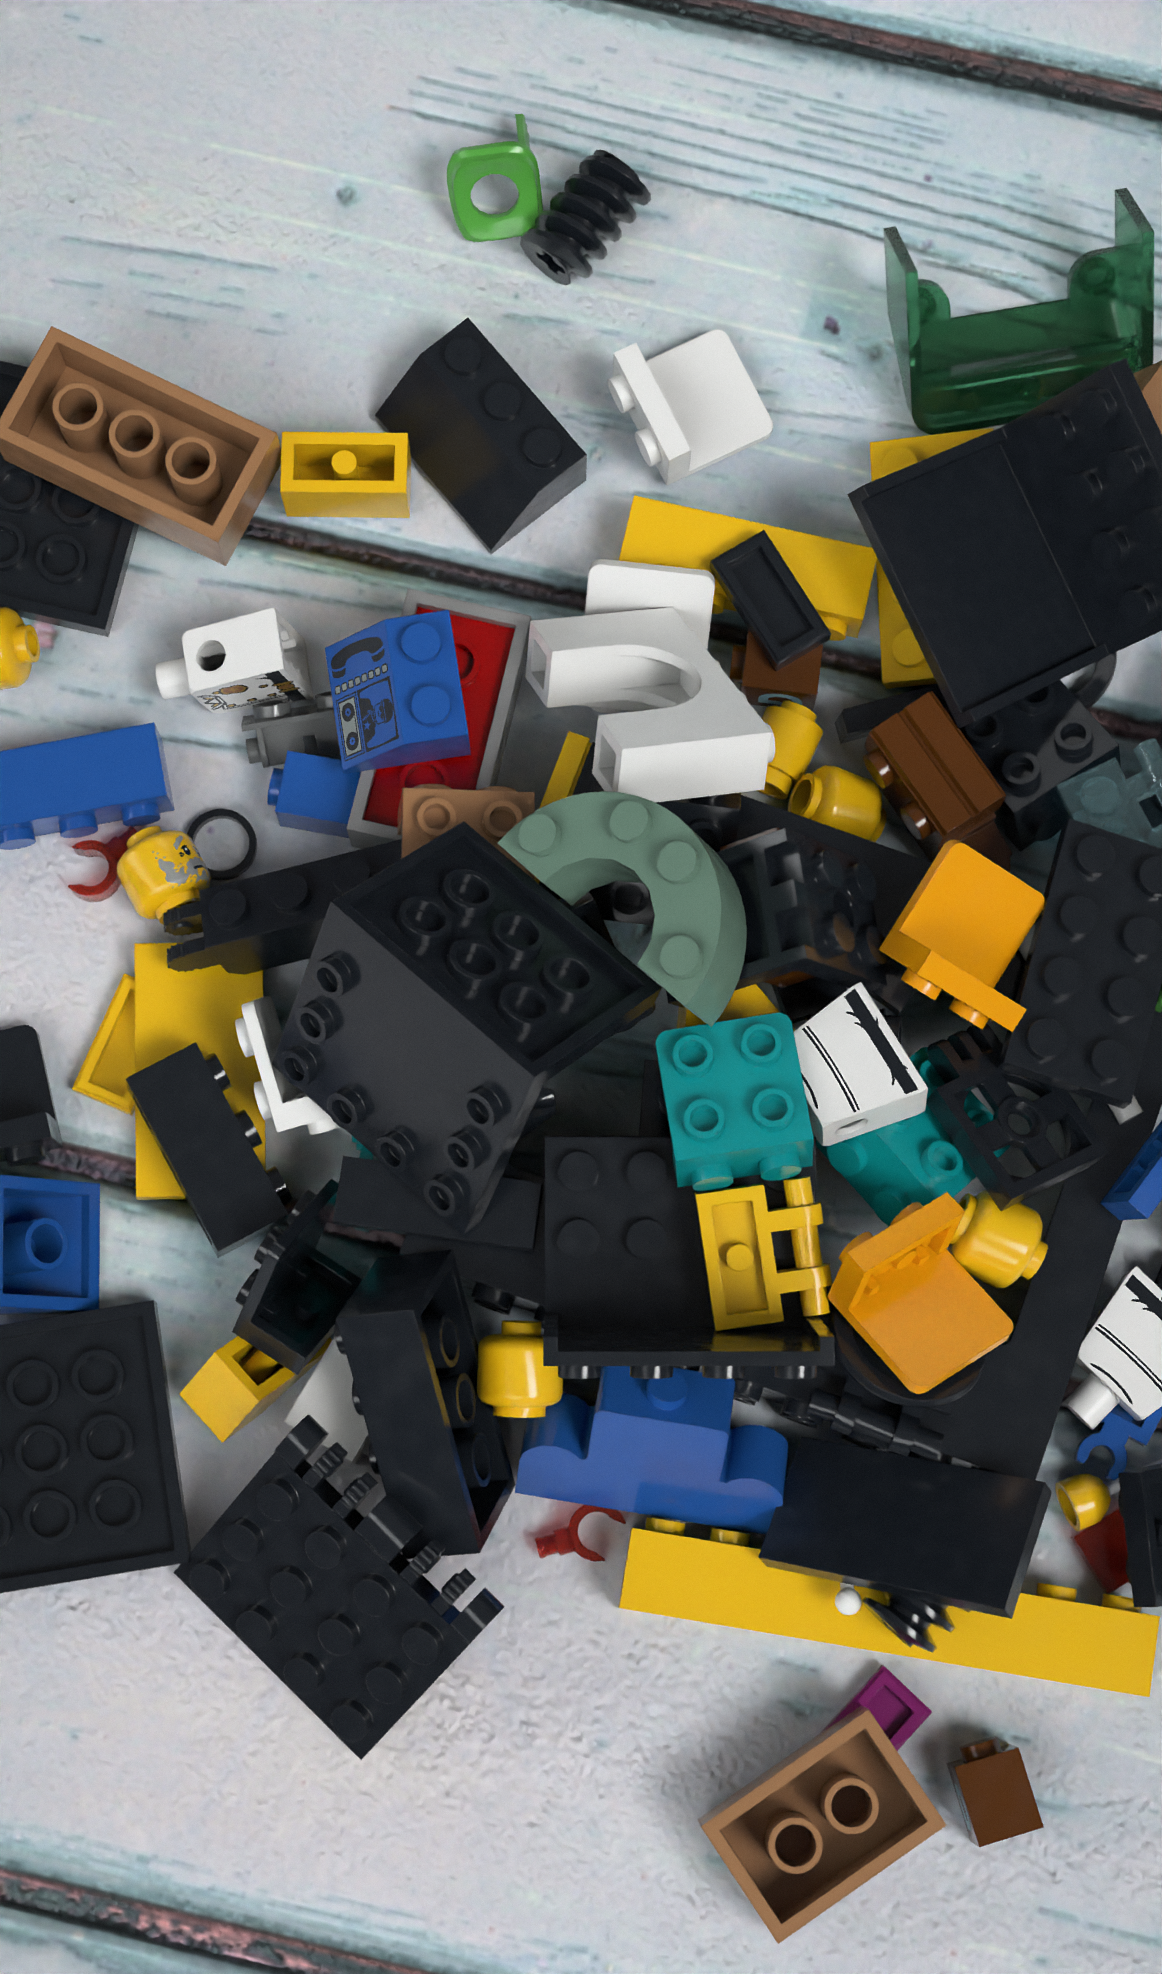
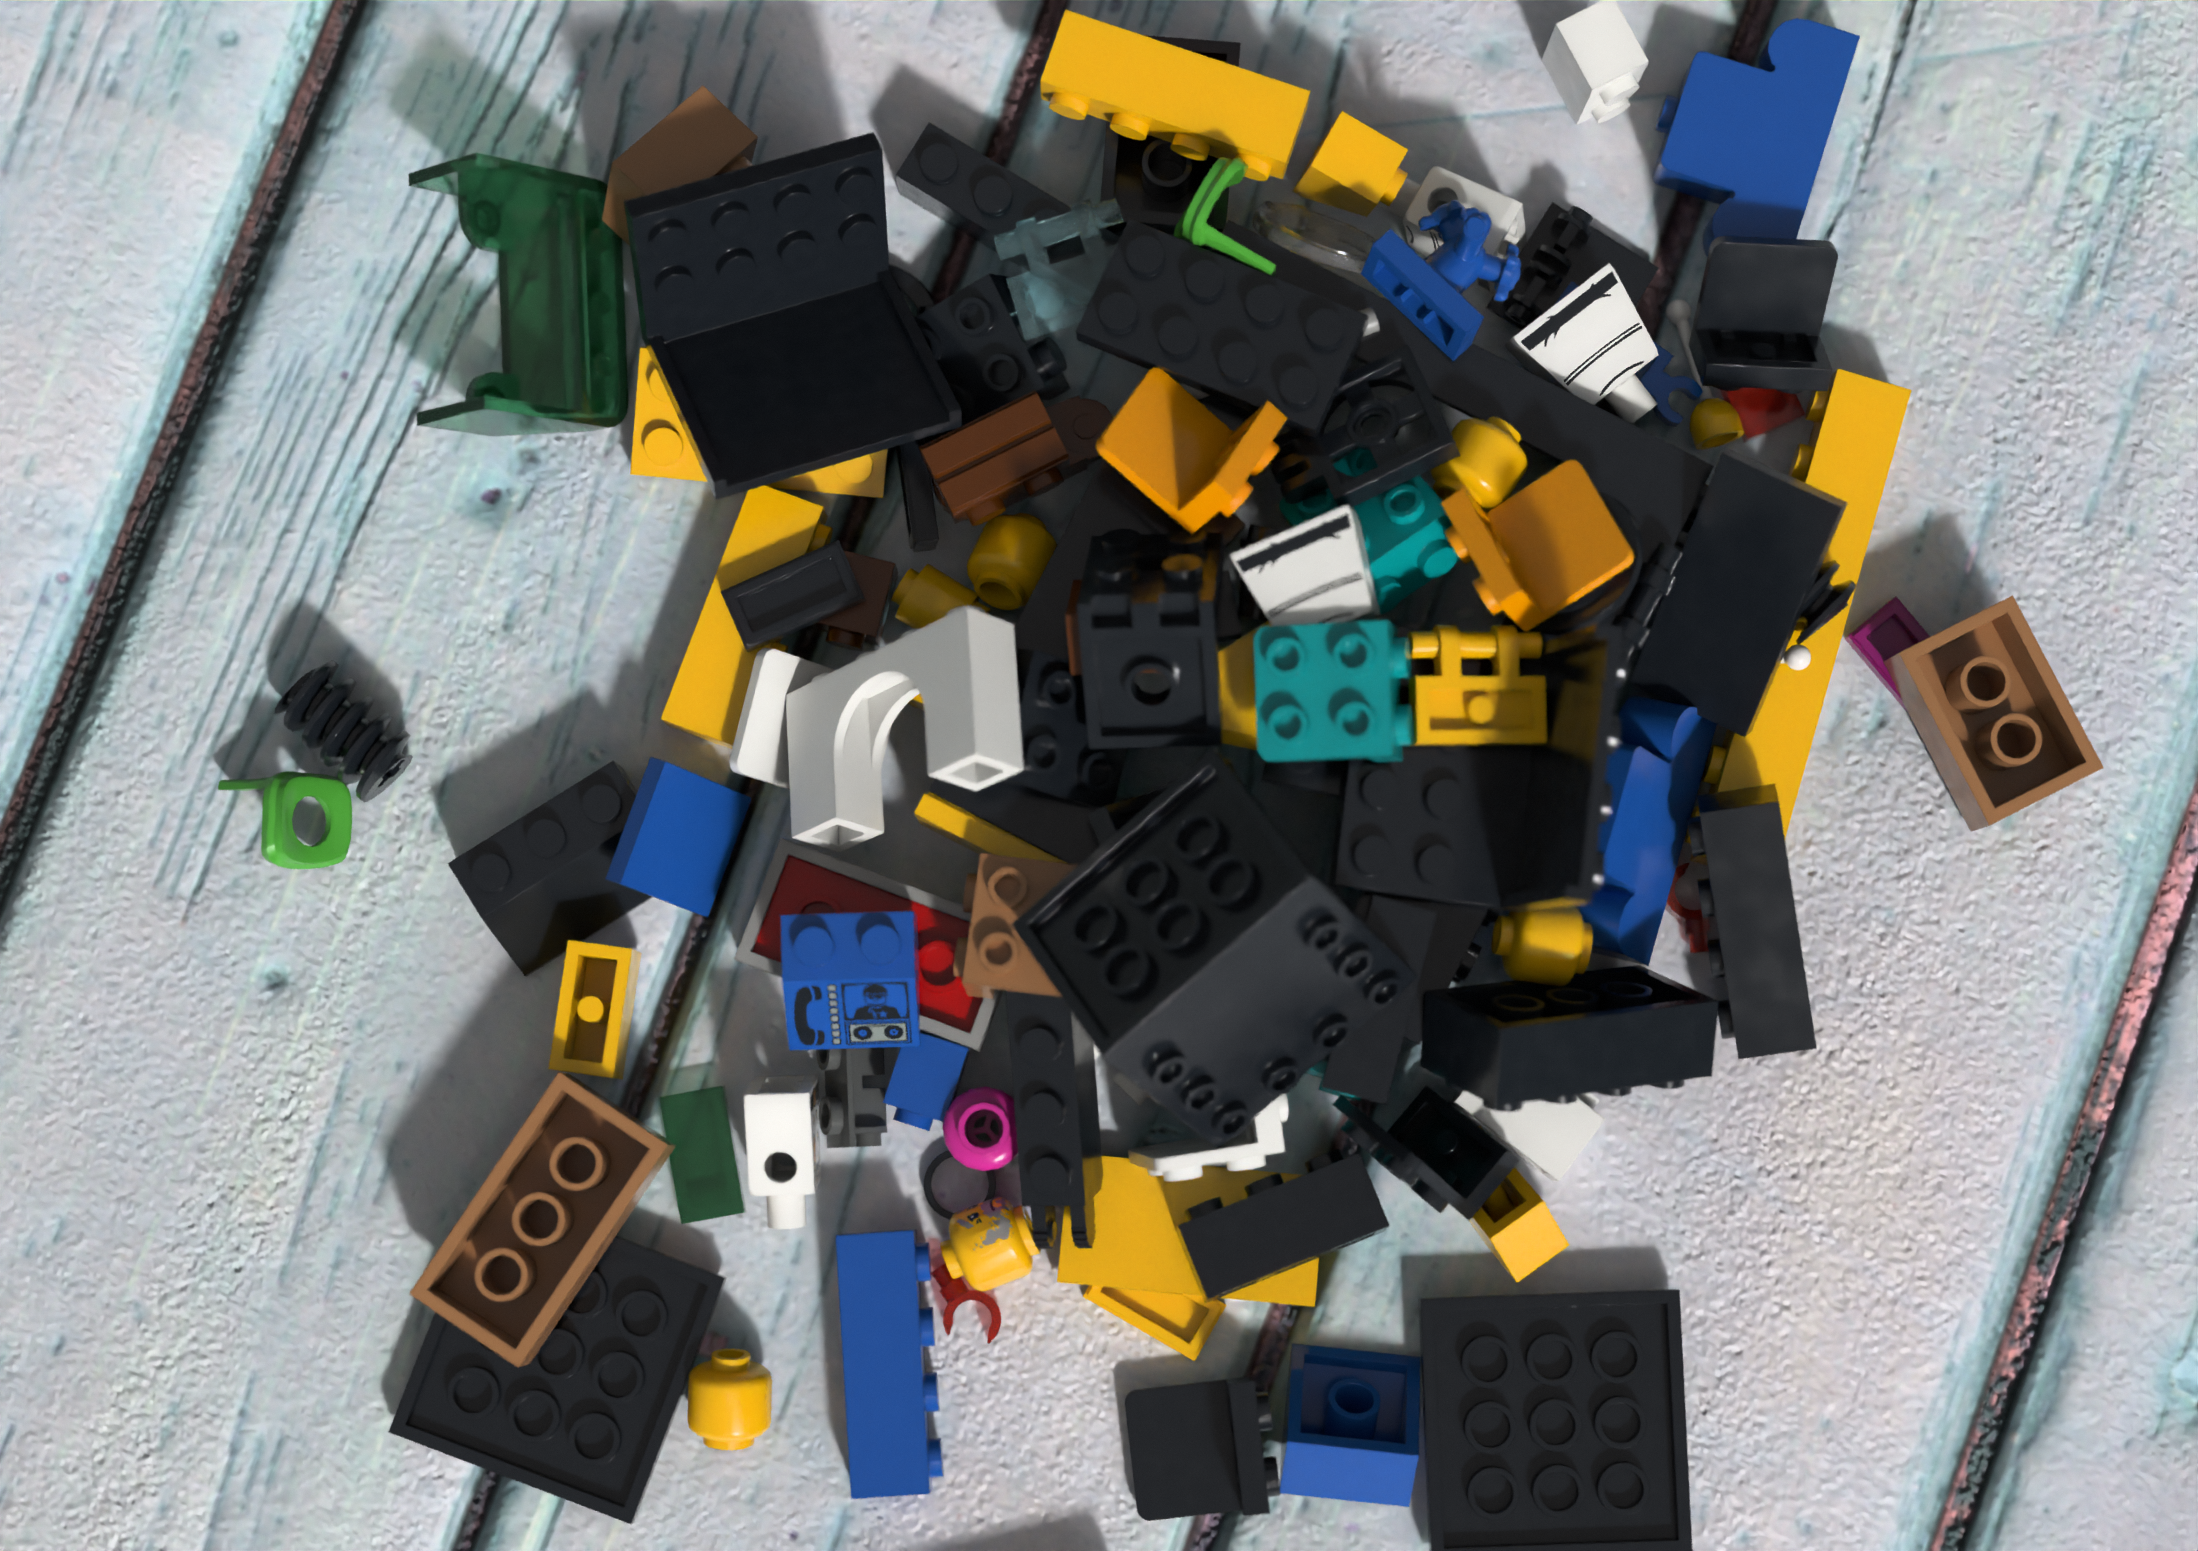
camera: 80 degrees left, 5 degrees up
(222, 595) = (704, 1155): none -> clear green tile
(266, 835) = (961, 1134): none -> dark pink head
(331, 1593) = (1733, 1150): black hinge -> none
(521, 528) = (678, 837): none -> blue tile
(586, 1585) = (1755, 921): none -> black brick
(689, 404) = (562, 650): white bracket -> none
(695, 900) = (1114, 707): sand green brick -> none
(993, 1792) = (1978, 549): reddish brown brick -> none

